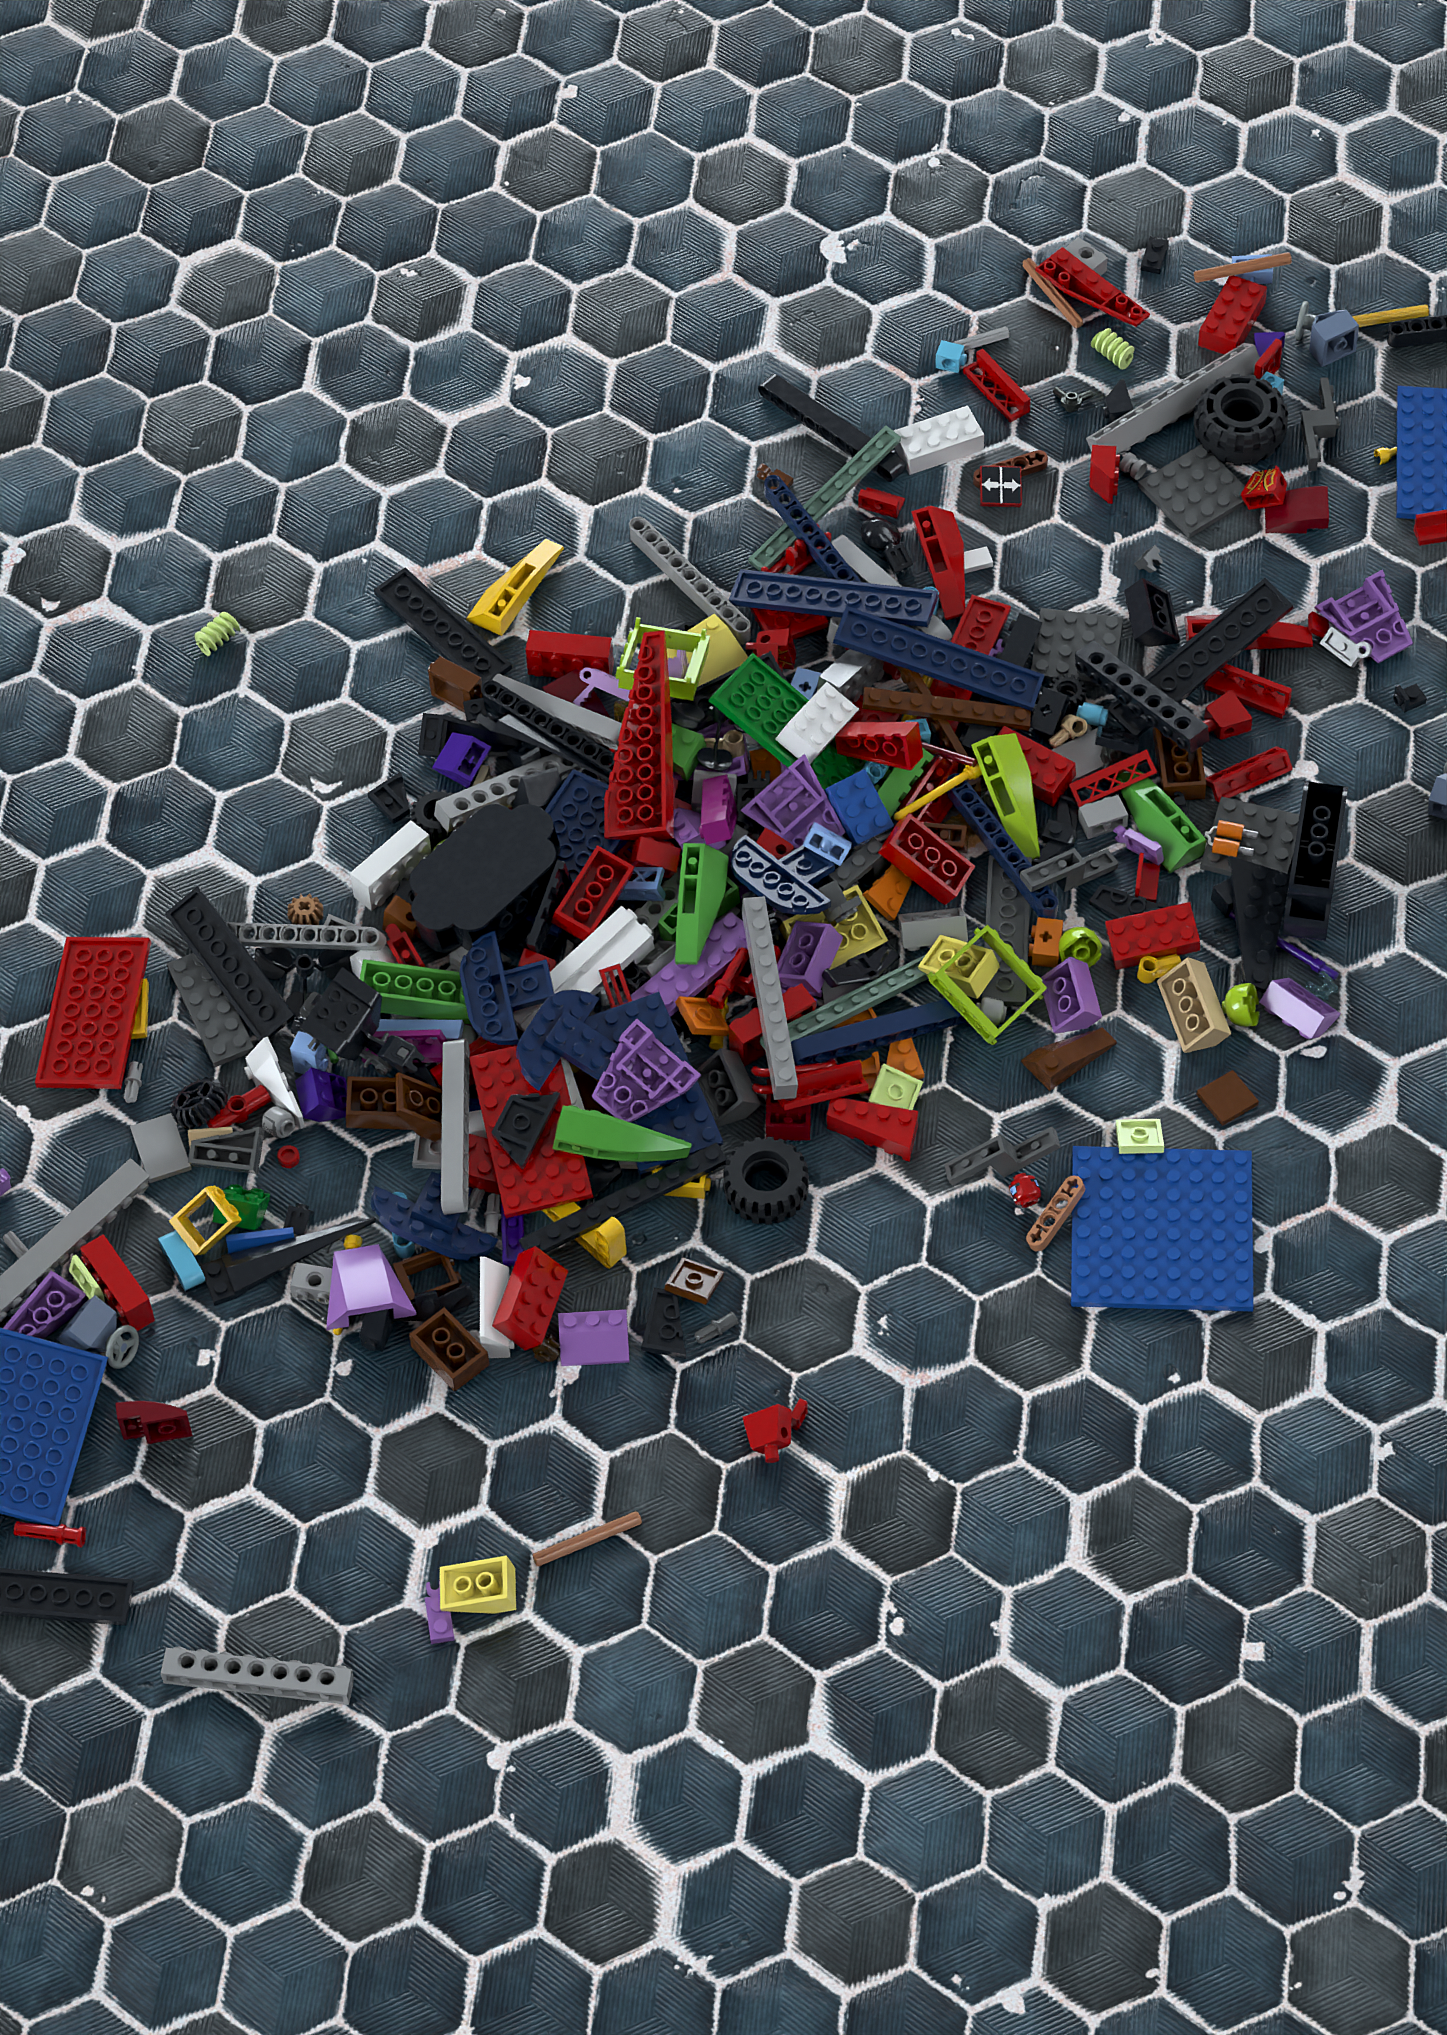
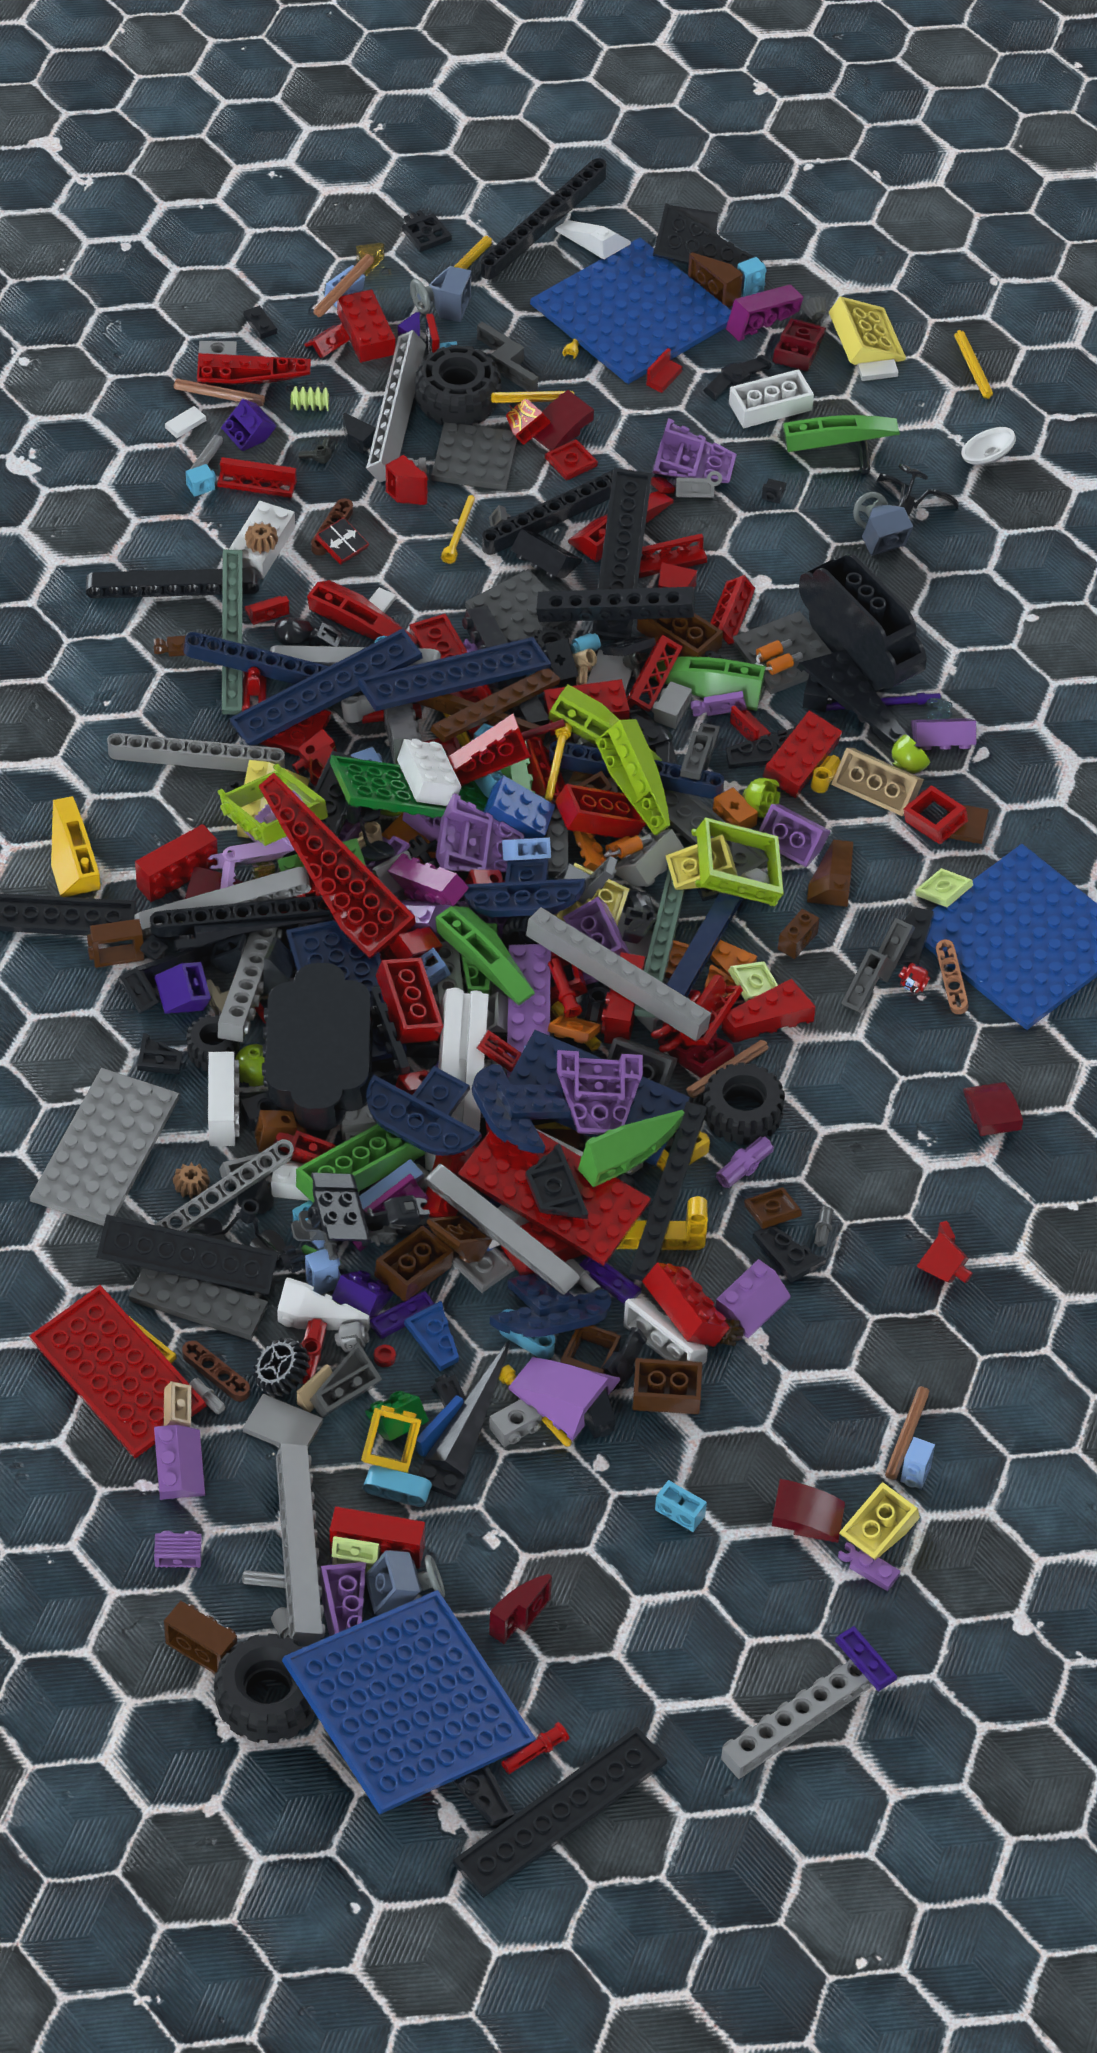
camera: 50 degrees left, 5 degrees down
(53, 1113) = (179, 1462): none -> medium lavender slope
(97, 1071) = (177, 1404): none -> tan slope
(162, 1069) = (213, 1373): none -> copper beam
(279, 838) = (104, 1147): none -> light grey plate
(336, 1136) = (393, 1319): none -> dark purple tile
(337, 1170) = (433, 1335): none -> blue wing
(339, 1675) = (866, 1658): none -> dark purple tile
(351, 1446) = (680, 1506): none -> medium azure brick
(439, 1531) = (808, 1511): none -> dark red slope
(555, 1566) = (917, 1463): none -> light blue brick
(716, 1228) = (744, 1162): none -> medium lavender piece
(802, 1145) = (745, 1056): none -> nougat axle
(923, 904) = (626, 846): none -> orange piece
(924, 436) = (261, 537): none -> medium nougat gear
(959, 1344) = (993, 1108): none -> dark red slope
(975, 1080) = (798, 933): none -> reddish brown brick
(987, 845) = (635, 772): none -> lime wedge
(998, 299) = (185, 422): none -> white tile
(1040, 336) = (248, 425): none -> dark purple slope
(1072, 1152) = (922, 921): none -> black wing
(1075, 558) = (450, 553): none -> yellow piece
(1189, 308) = (329, 340): none -> red panel
(1190, 581) = (548, 513): none -> black beam
(1214, 1085) = (946, 826): none -> red window
(1271, 549) = (571, 459): none -> red tile
(1289, 470) = (510, 397): none -> yellow axle
(1305, 258) = (375, 250): none -> clear yellow slope
(1385, 255) = (423, 223): none -> black piece

